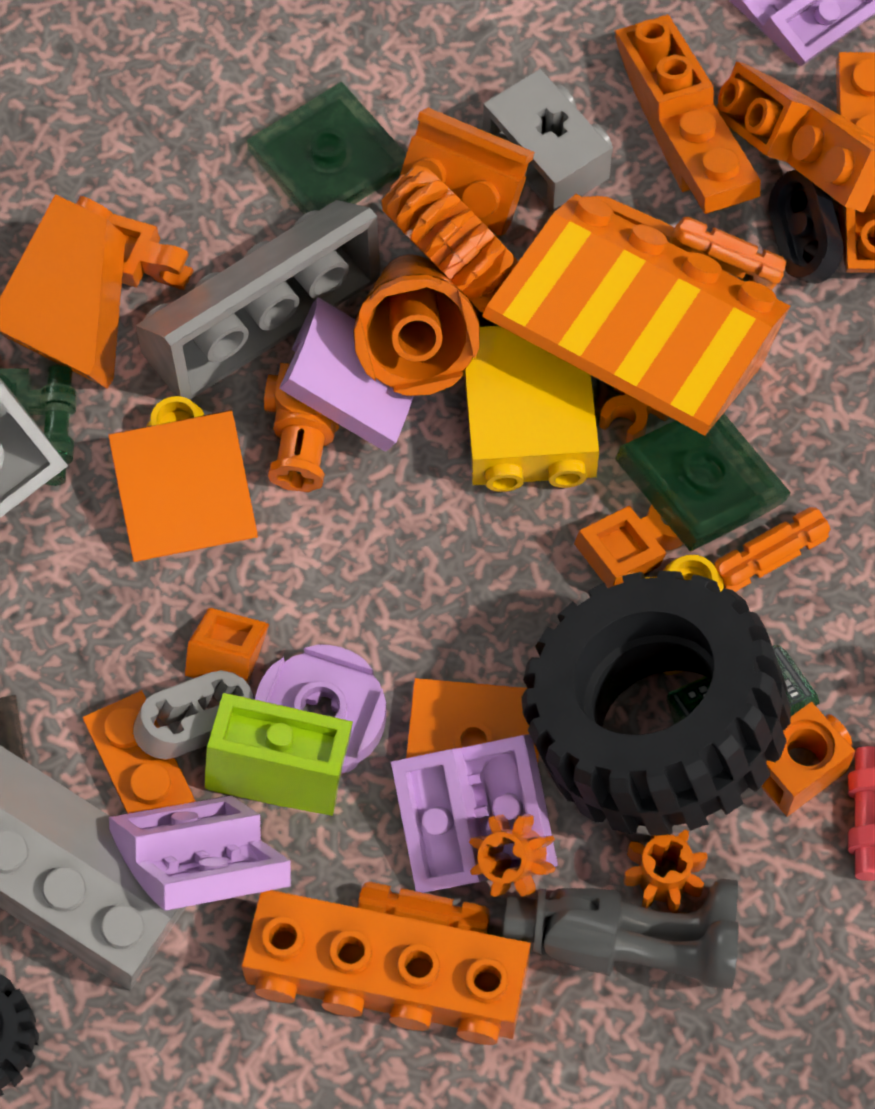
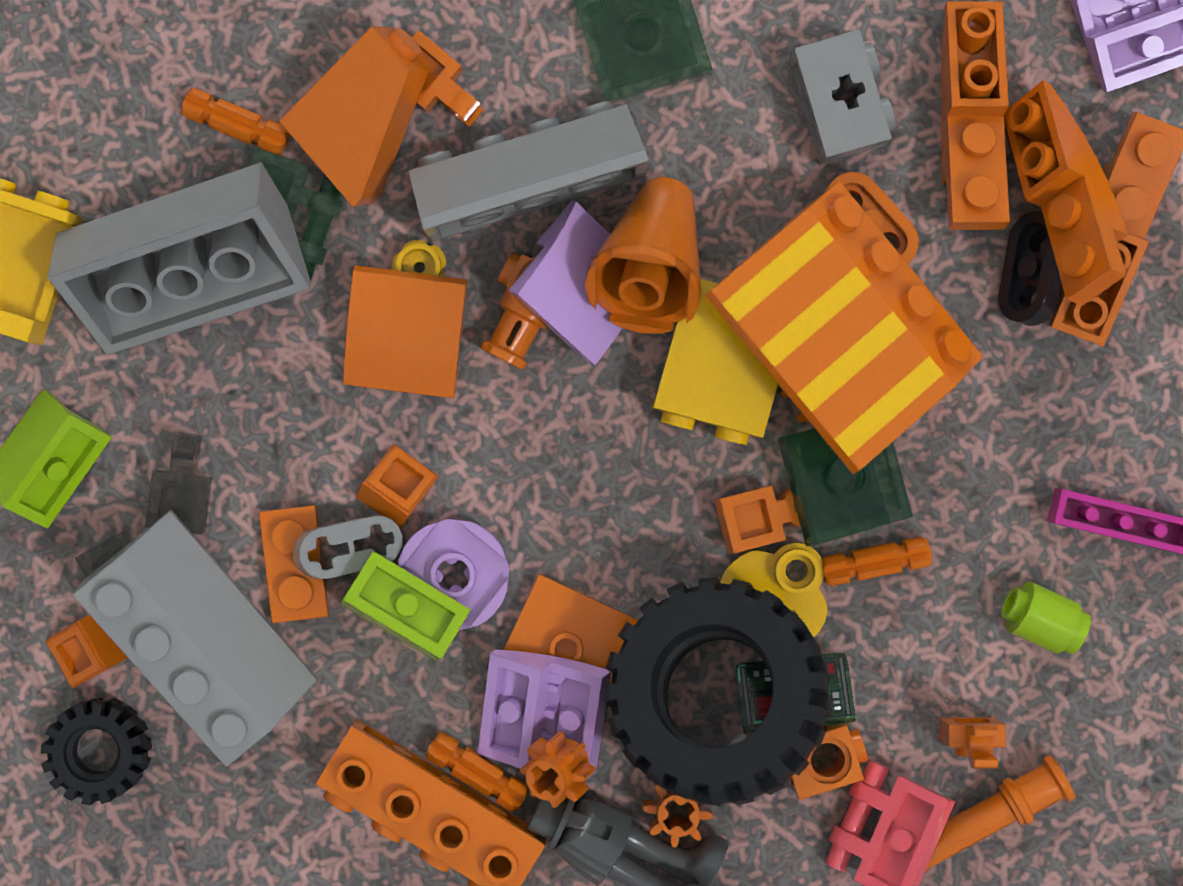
camera: 20 degrees right, 25 degrees up
(199, 852) = (311, 677): lavender slope -> none
(449, 234) = (711, 191): orange gear -> none
(473, 164) = (753, 106): orange plate -> none
(732, 253) = (953, 272): orange axle -> none

